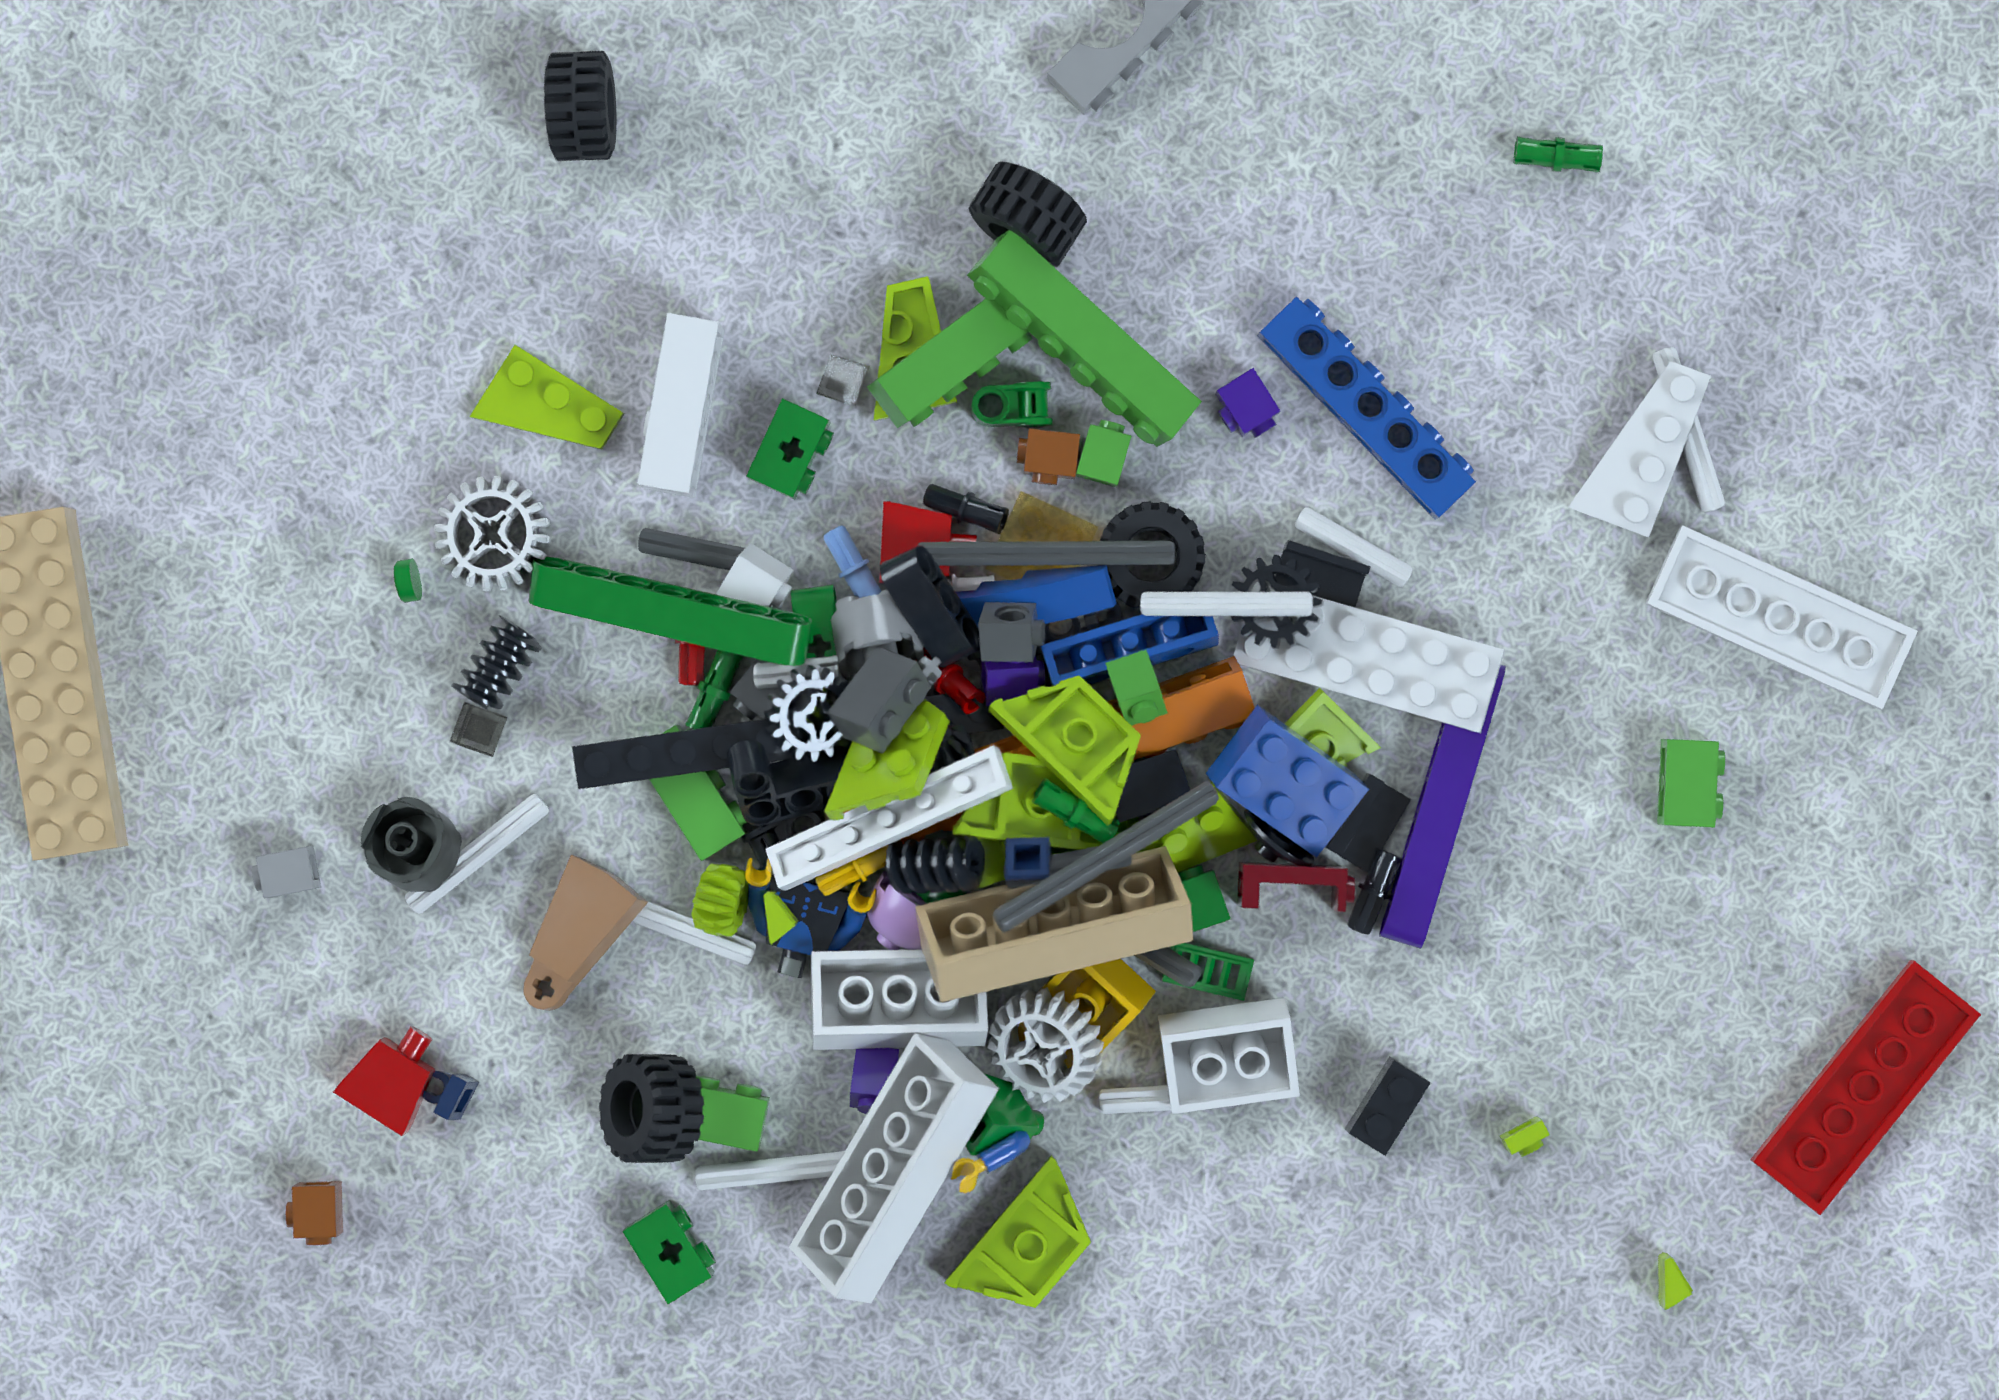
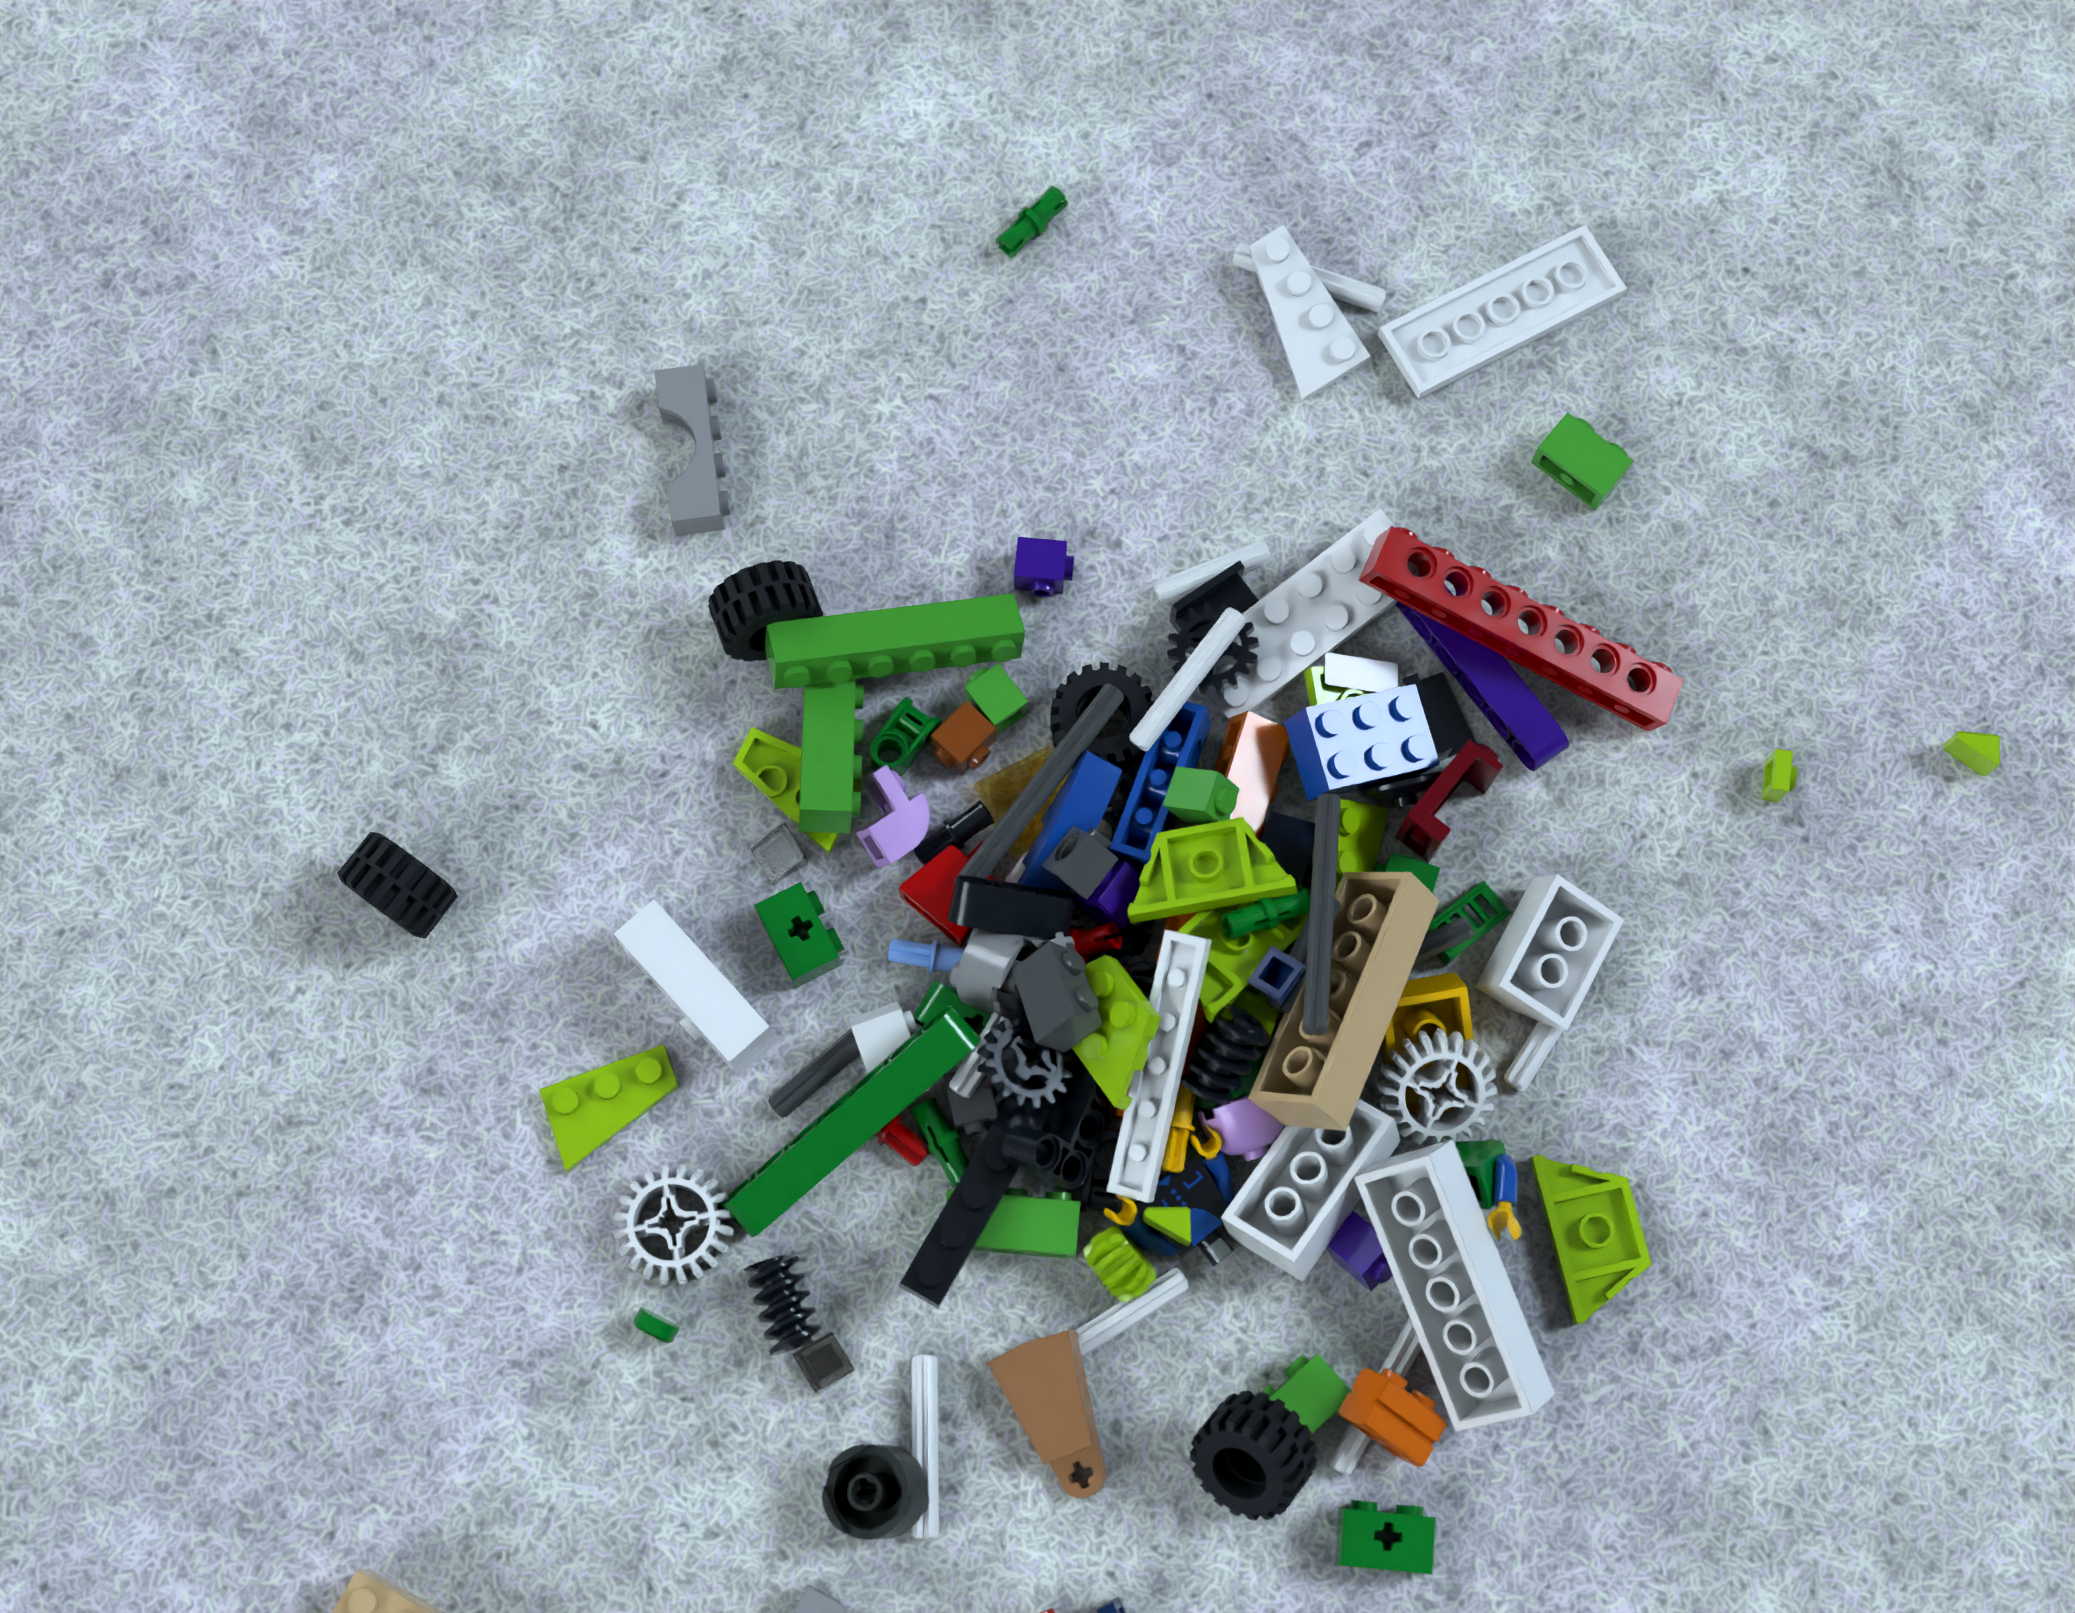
camera: 55 degrees left, 15 degrees down
(762, 1192) = (1393, 1416): none -> orange brick
(940, 460) = (902, 818): none -> lavender brick
(1282, 338) = (1096, 498): blue brick -> none
(1353, 735) = (1360, 673): none -> white sticker
(1374, 891) = (1487, 733): black axle -> none
(1387, 1106) = (1679, 860): black brick -> none
(1443, 697) = (1609, 689): none -> red brick
(1865, 1087) = (1915, 504): red plate -> none

